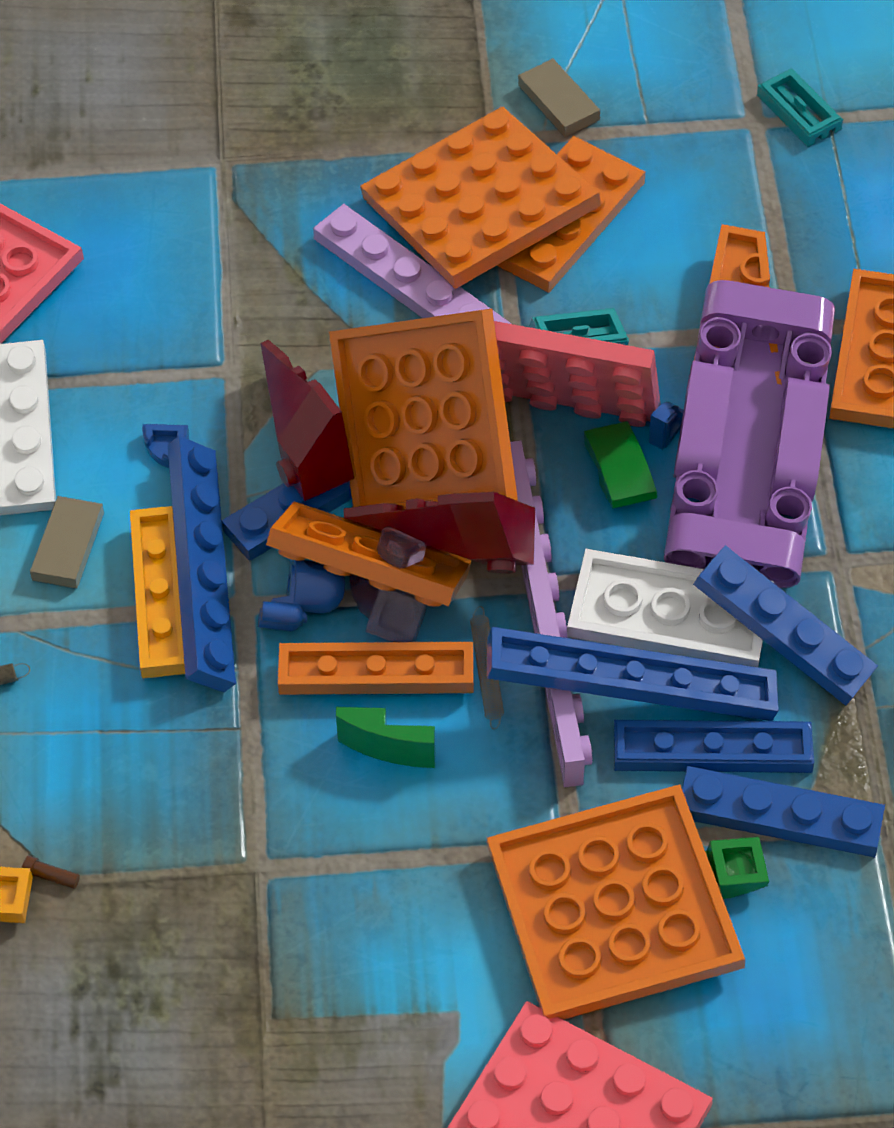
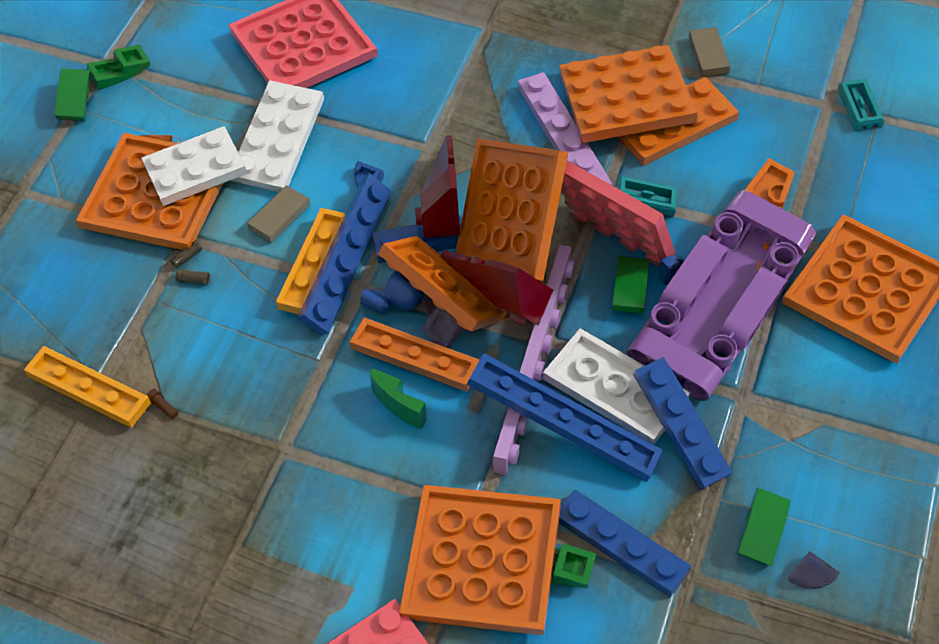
camera: 25 degrees right, 0 degrees up
(399, 548) = (459, 286): tile -> none
(713, 745) = (600, 483): blue tile -> none

